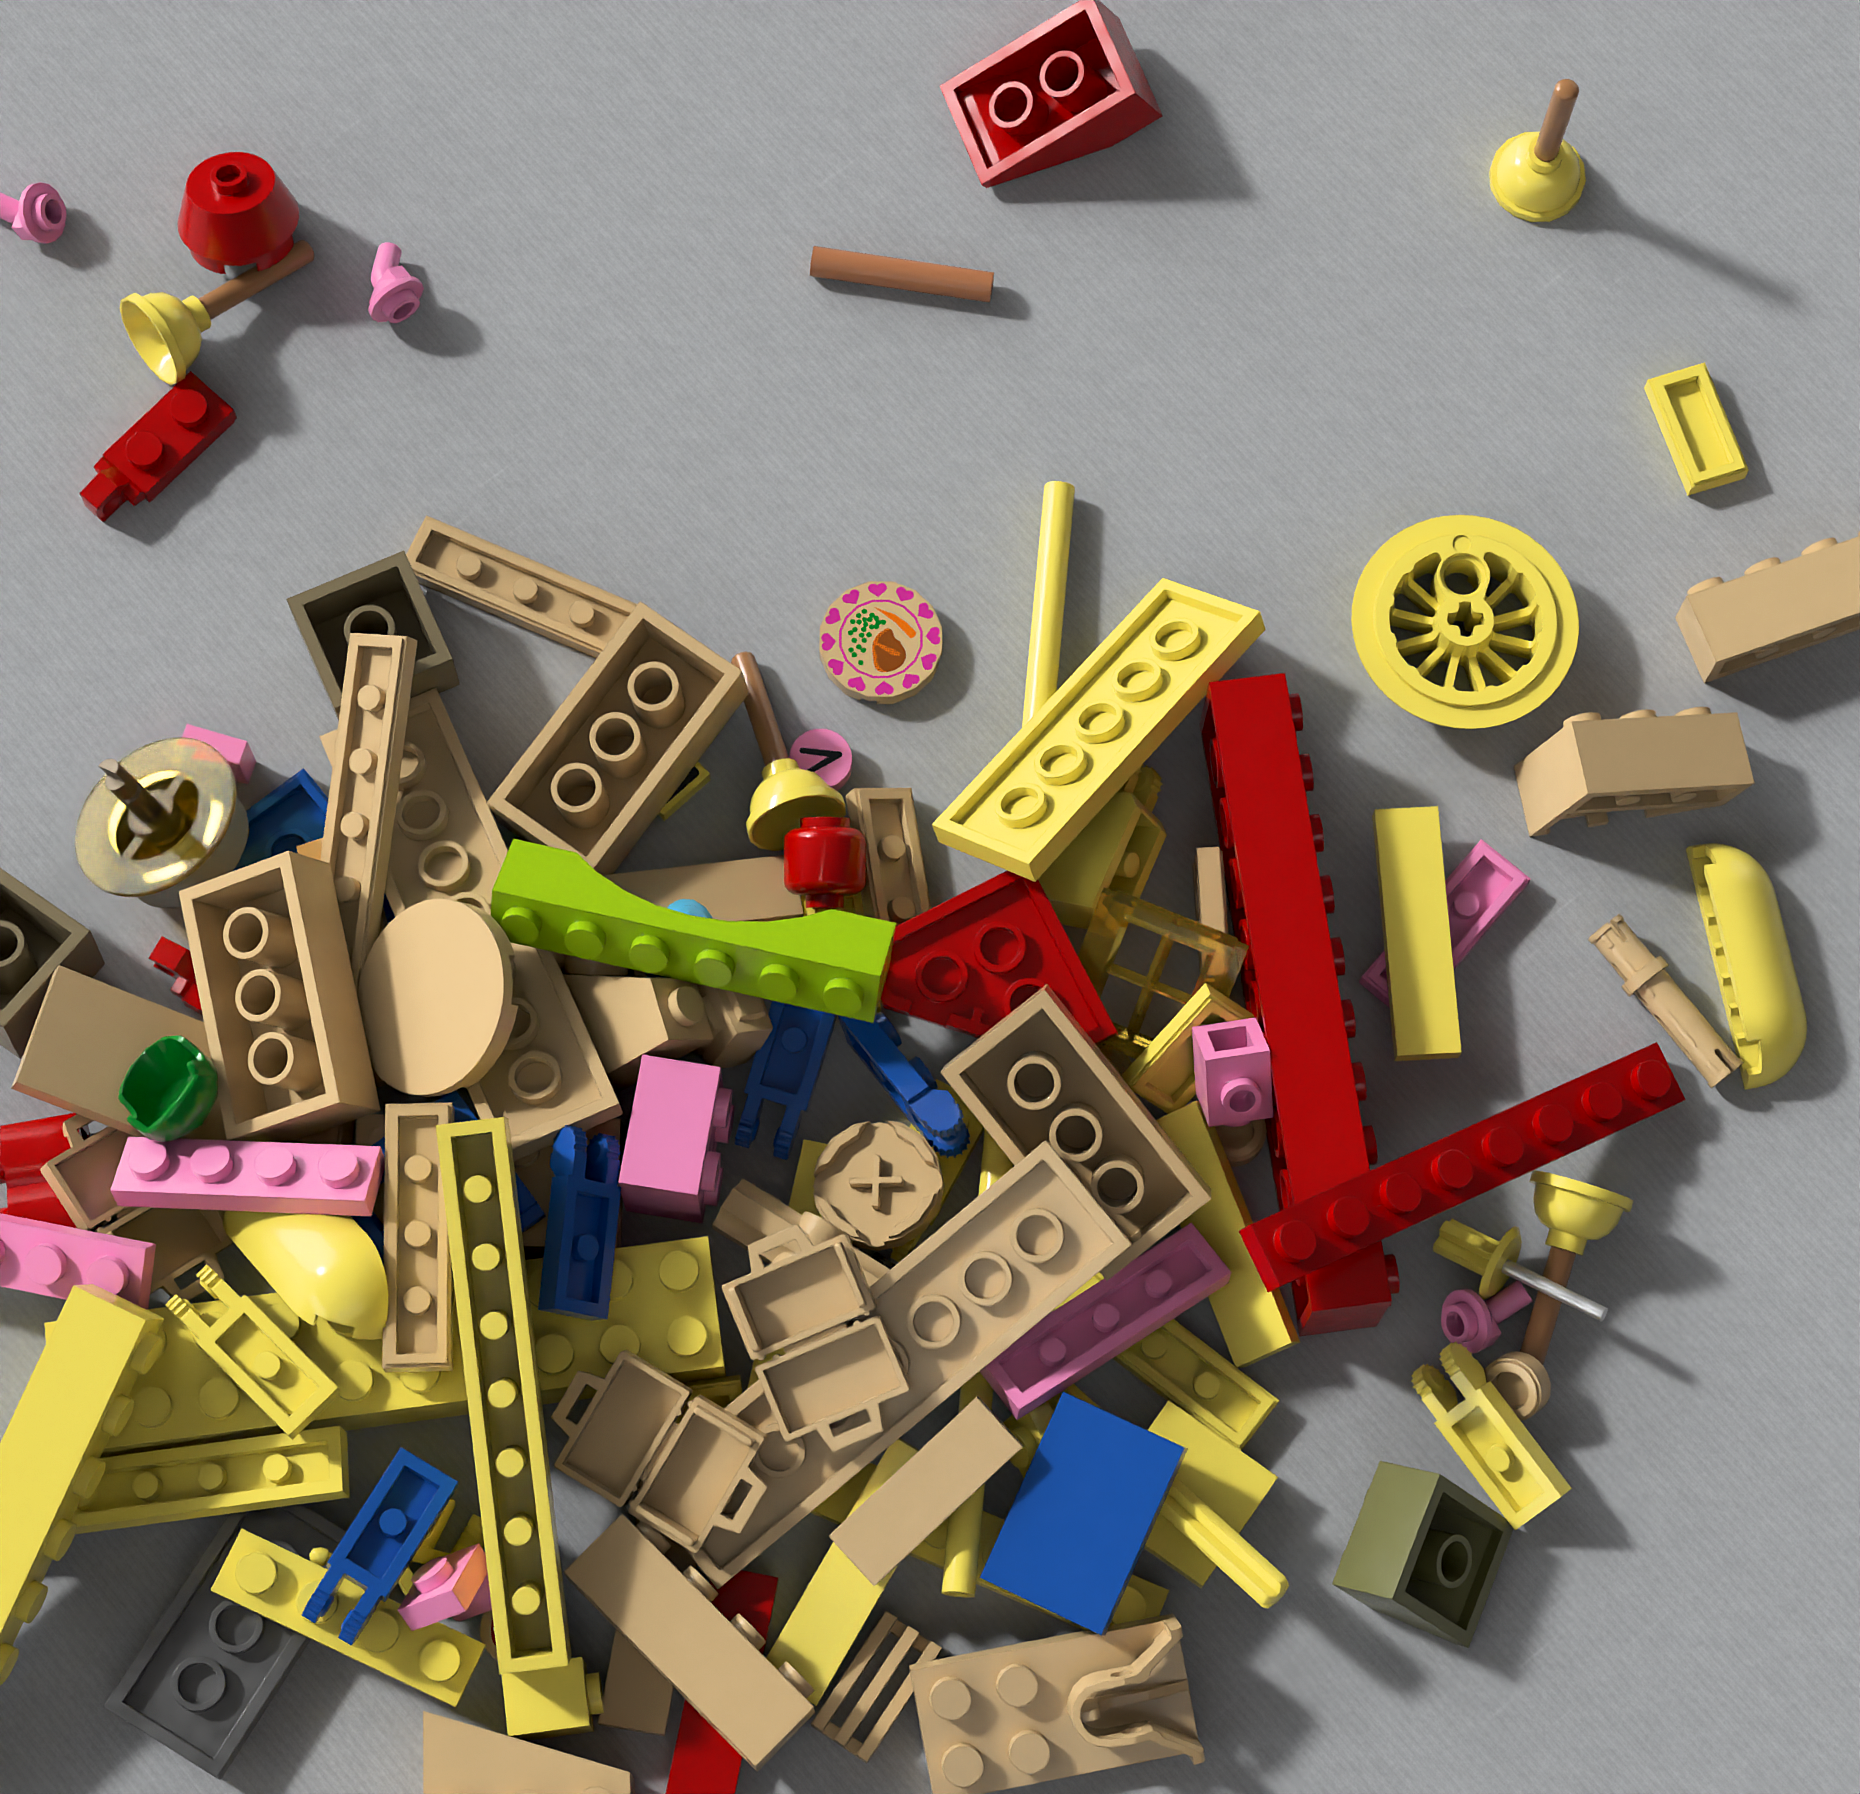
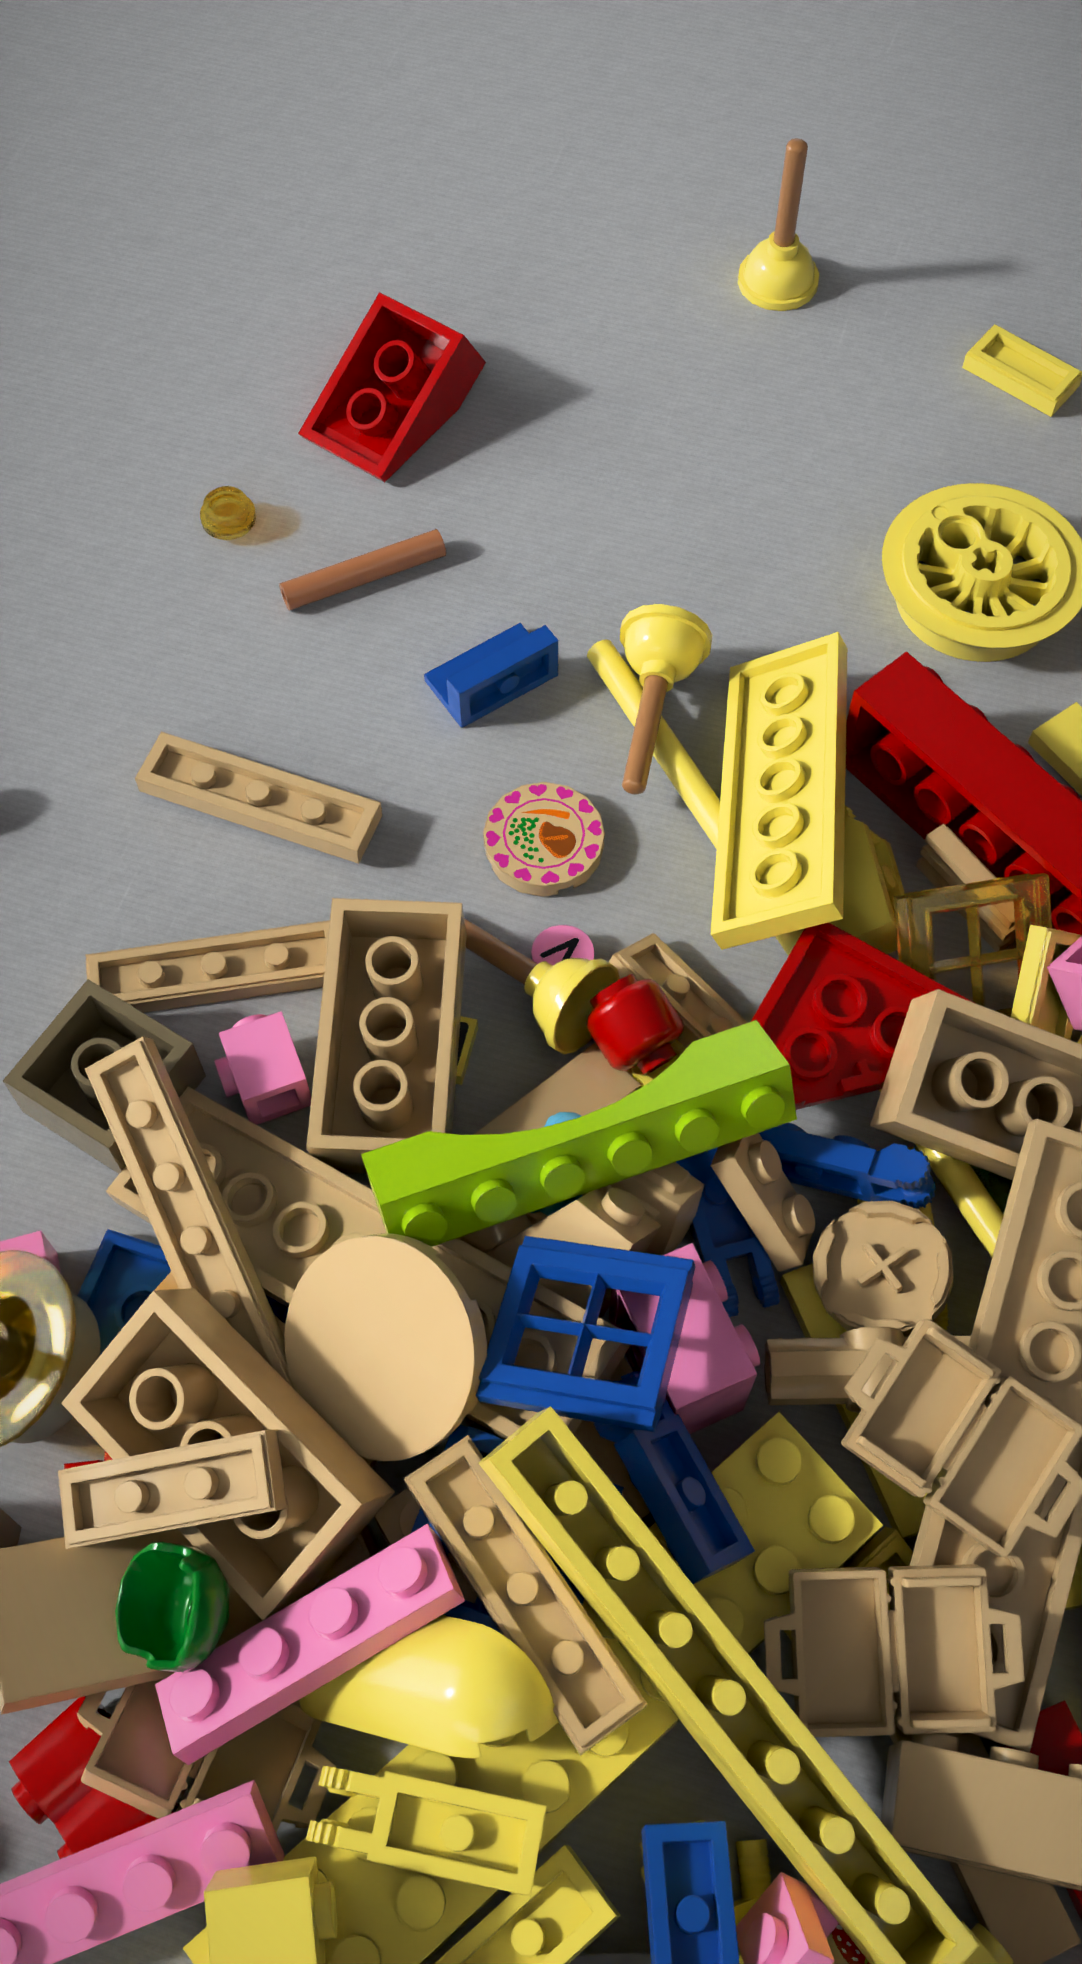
camera: 30 degrees left, 10 degrees down
(217, 1006) = (172, 1489): none -> tan tile
(503, 708) = (263, 1068): none -> bright pink brick
(542, 1120) = (571, 1393): none -> blue piece
(660, 454) = (259, 797): none -> tan plate
(815, 141) = (227, 513): none -> clear yellow plate
(823, 1071) = (766, 1199): none -> tan plate
(948, 452) = (495, 672): none -> blue panel
(1100, 530) = (663, 648): none -> light yellow piece

